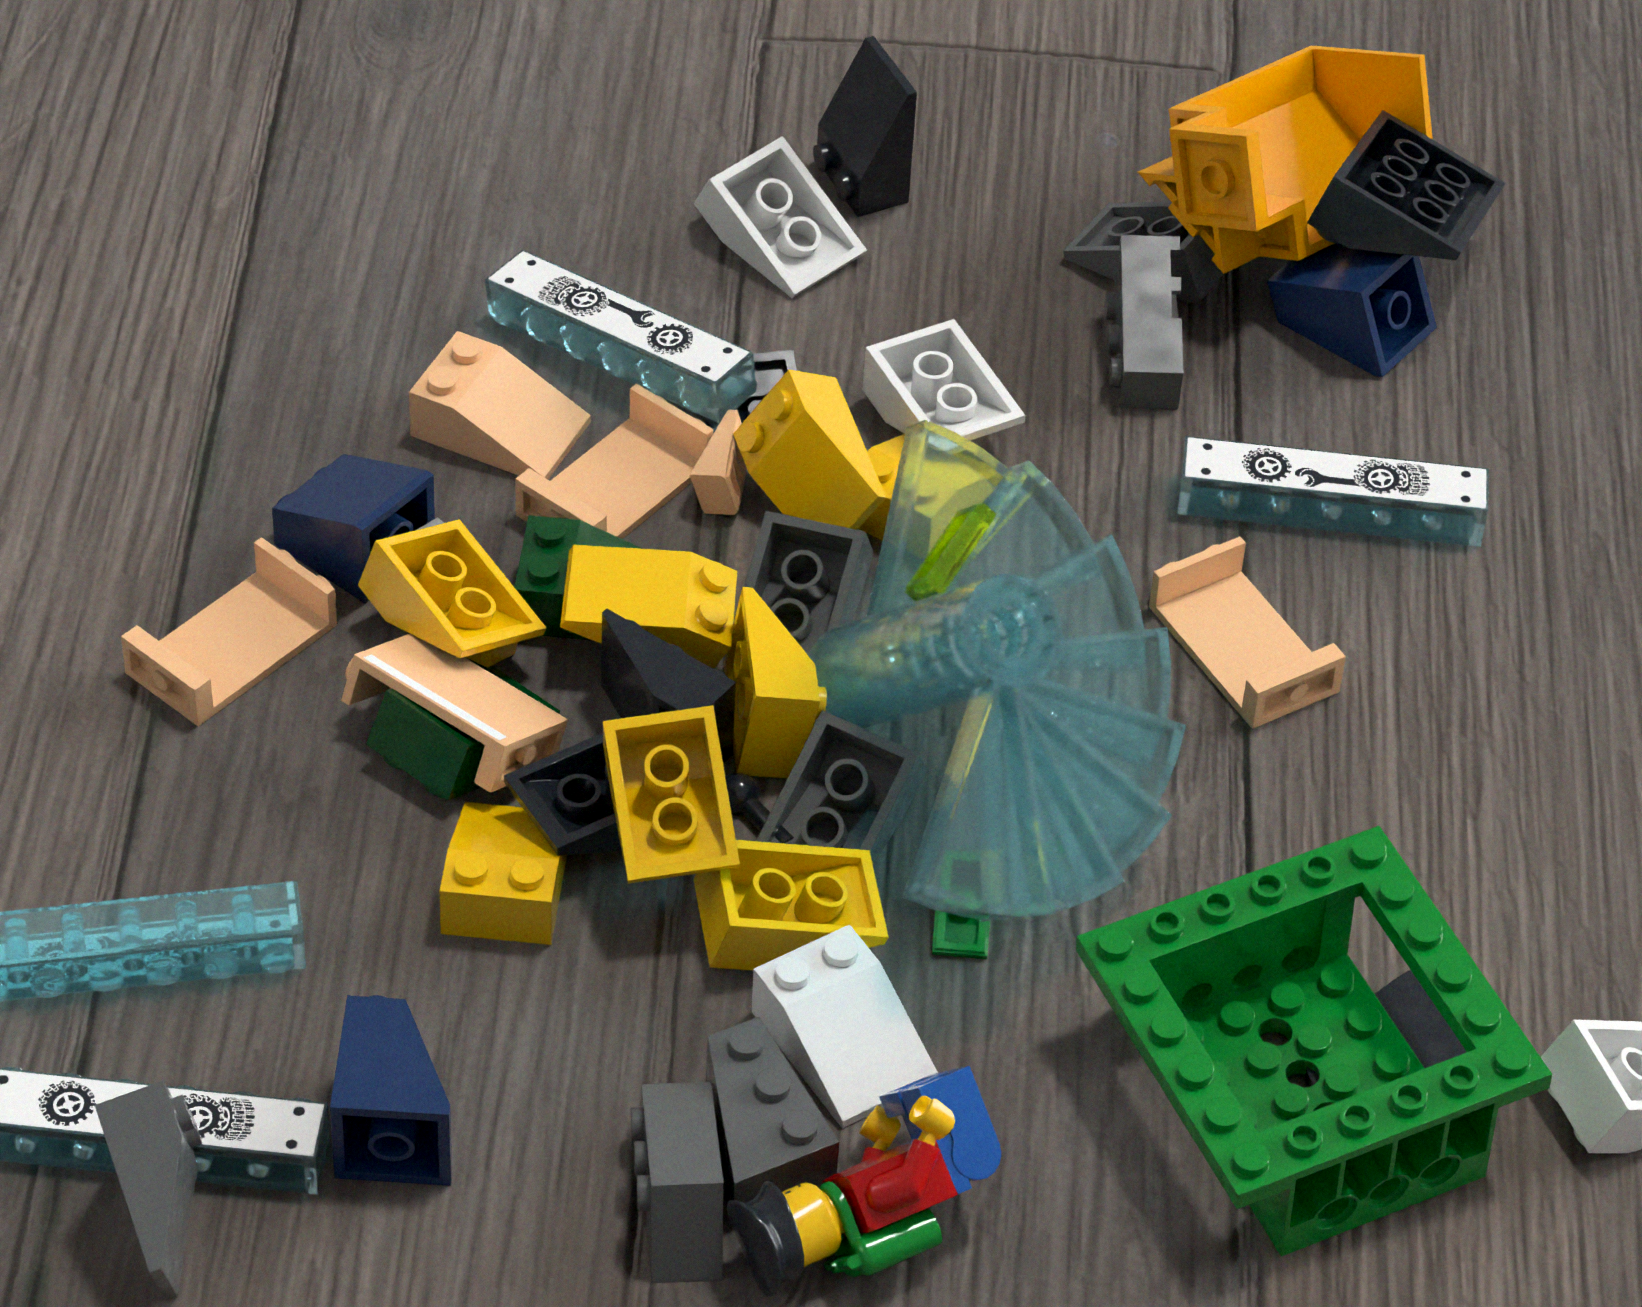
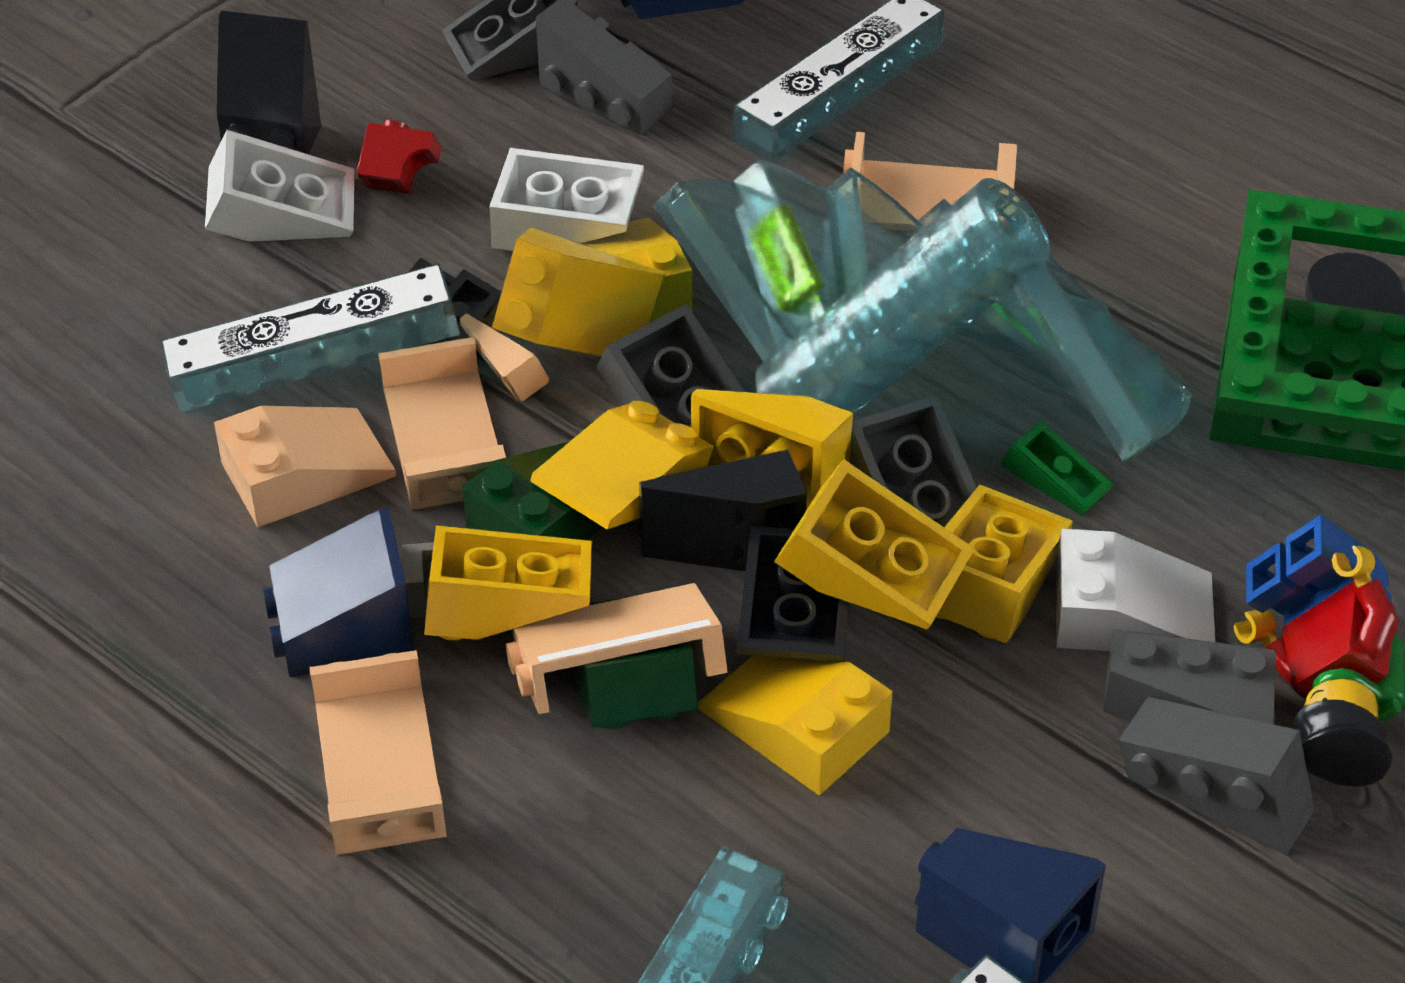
camera: 50 degrees left, 0 degrees up
(891, 260) = (394, 155): none -> red brick

